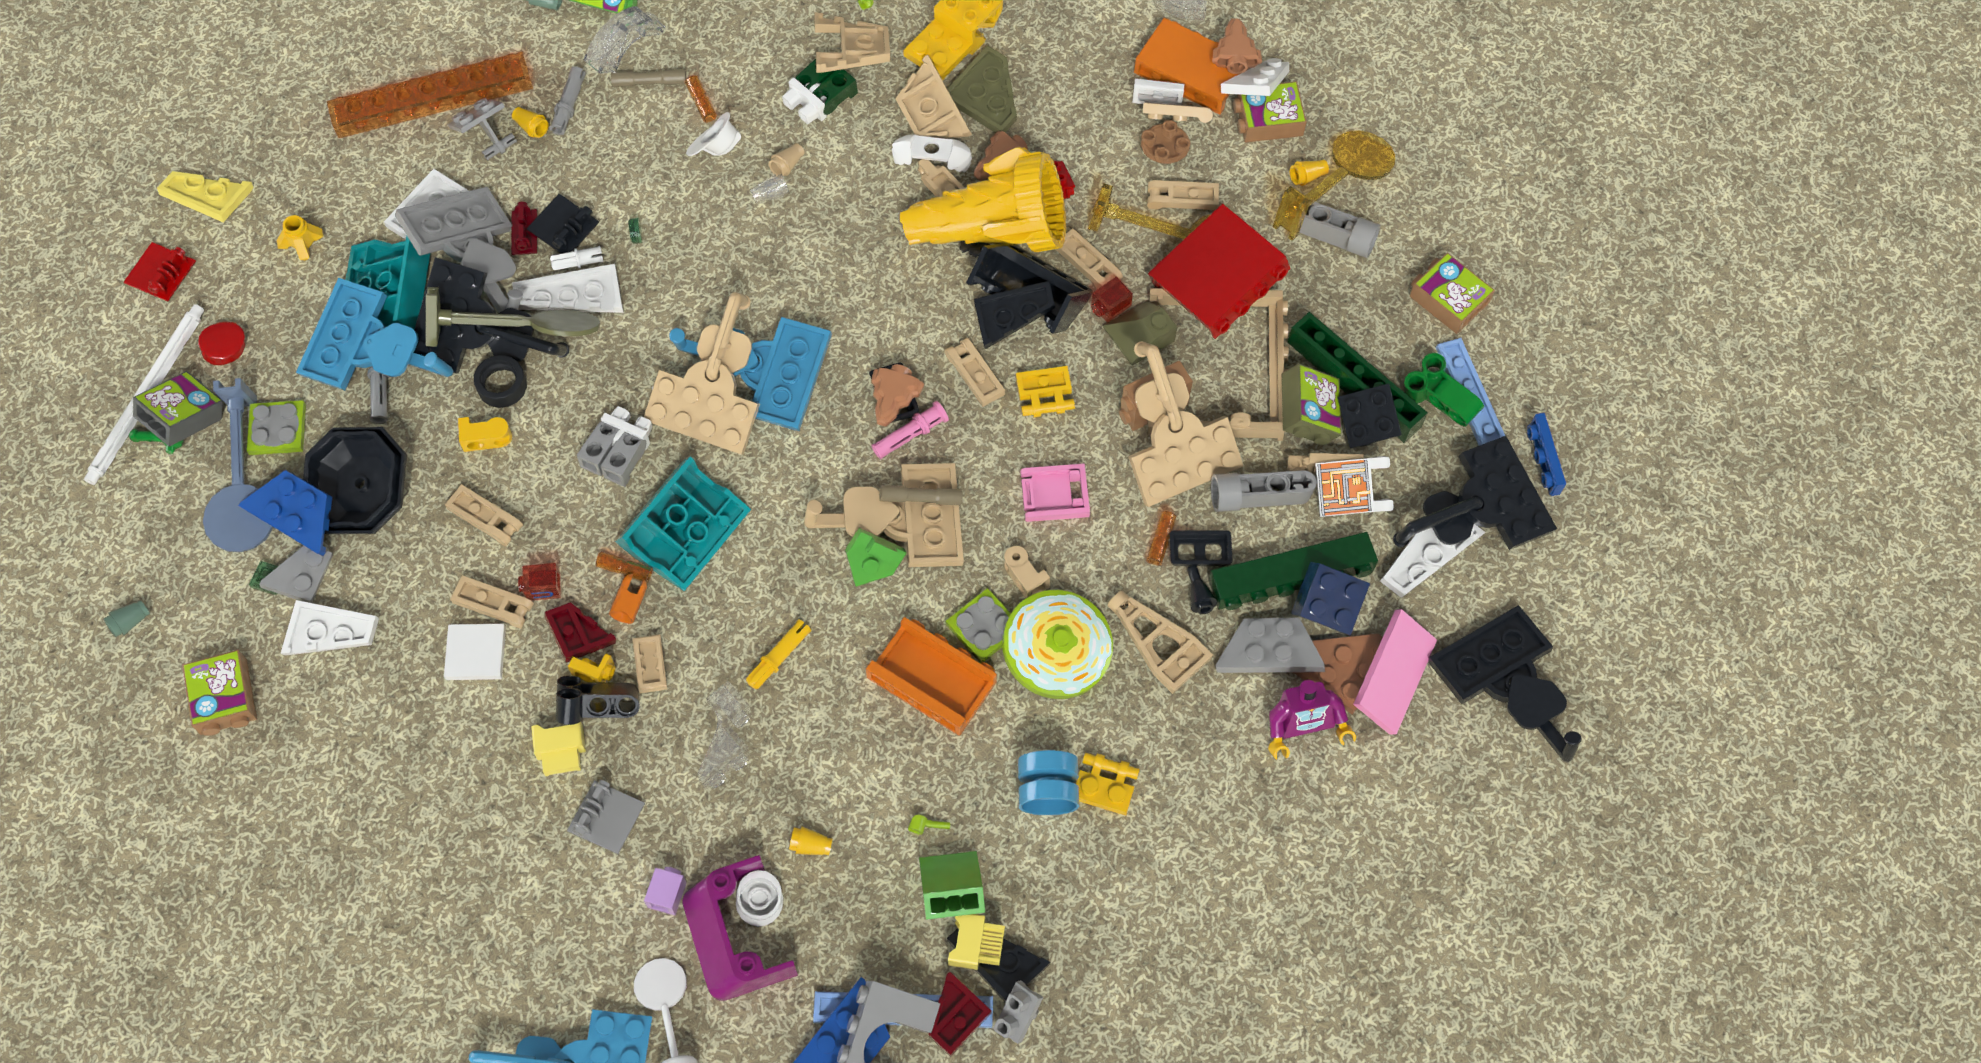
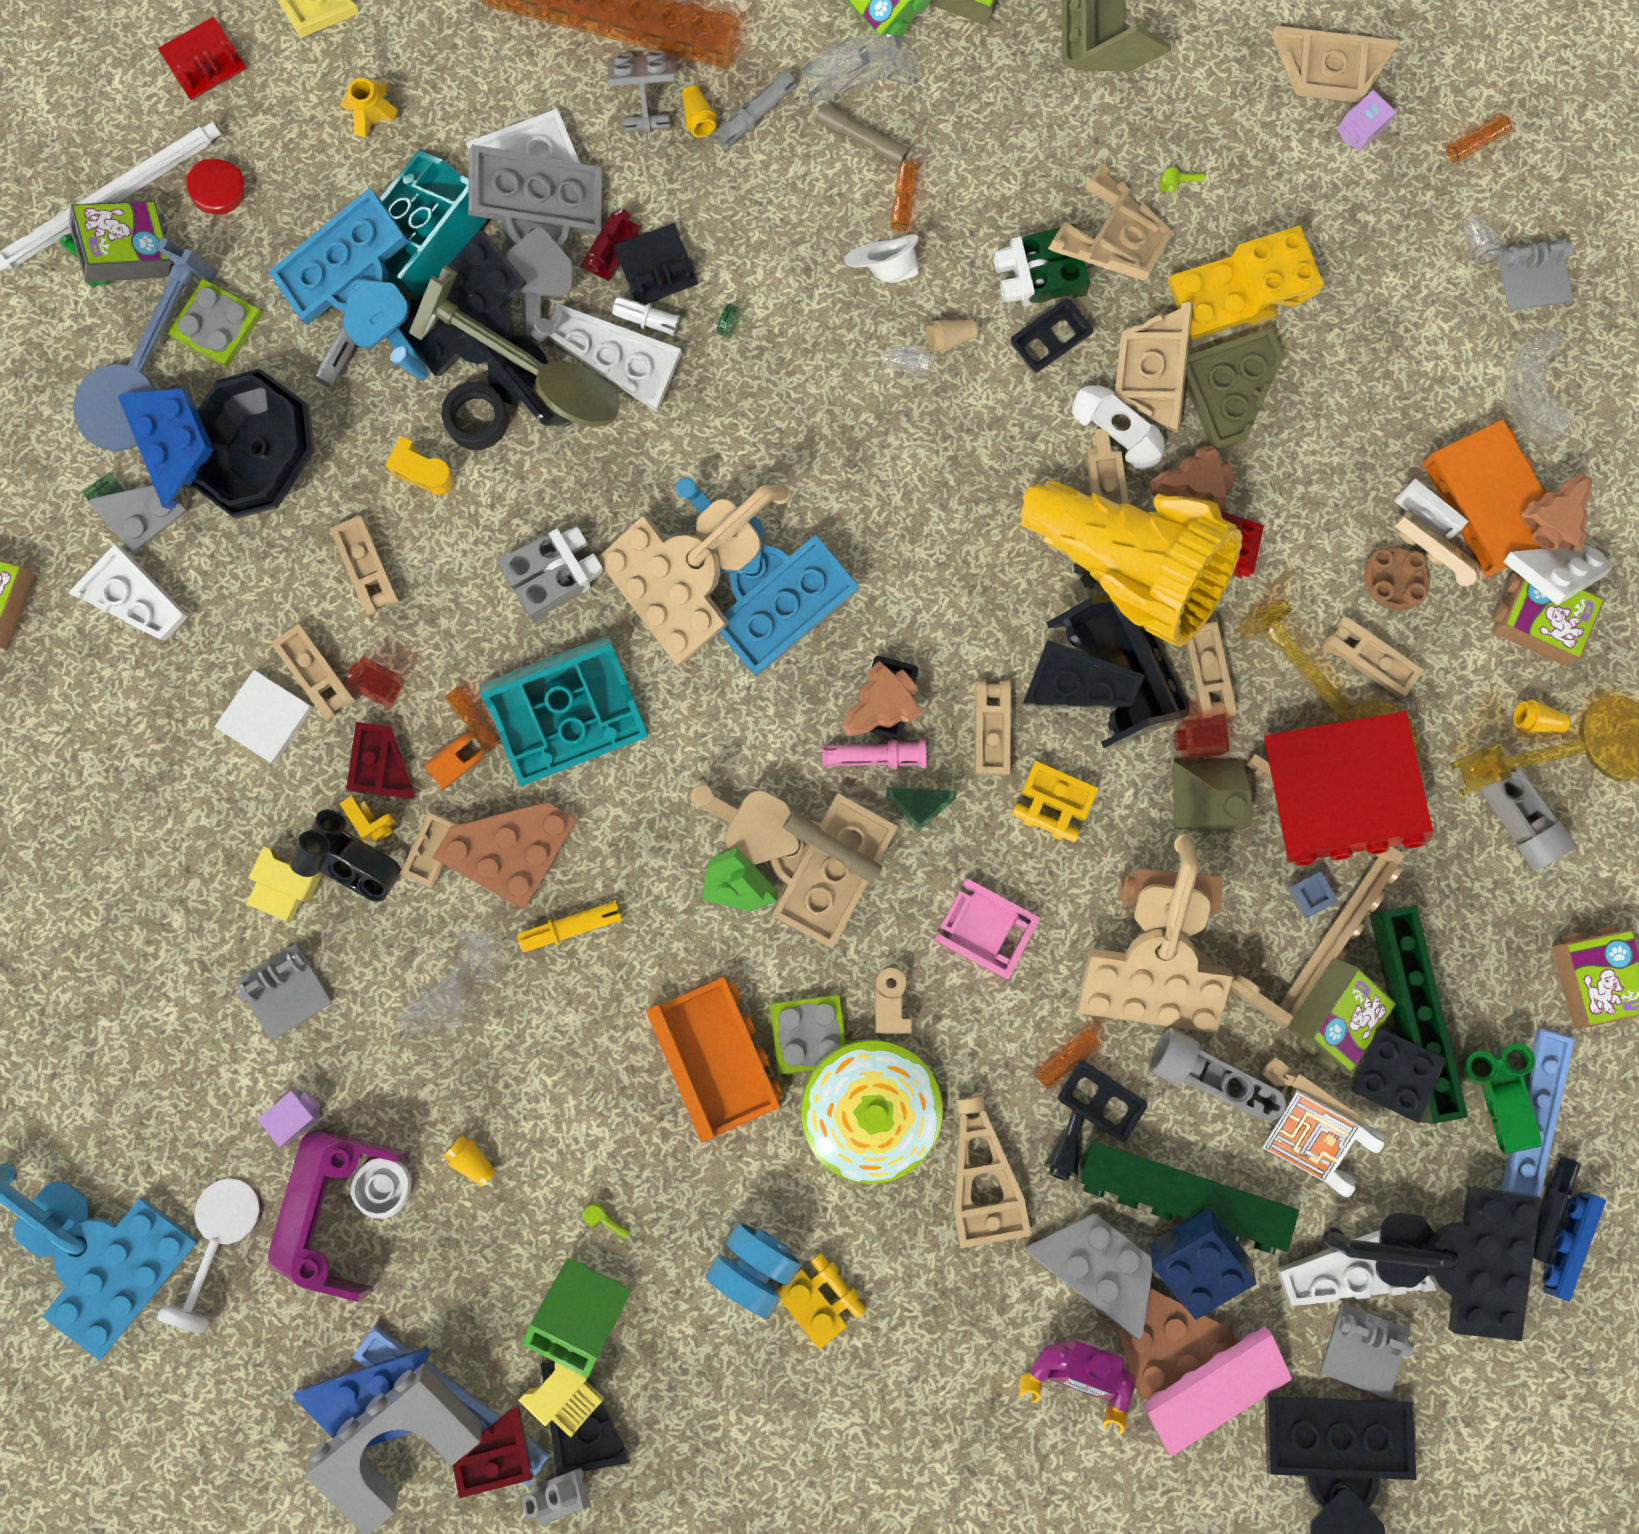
camera: 30 degrees right, 15 degrees up
(703, 632) = (507, 850): none -> nougat plate
(842, 125) = (1041, 330): none -> black piece
(958, 443) = (919, 806): none -> clear green slope
(1244, 350) = (1313, 894): none -> sand blue plate
(1469, 595) = (1366, 1351): none -> light grey hinge
(1520, 440) = (1554, 1208): none -> black axle

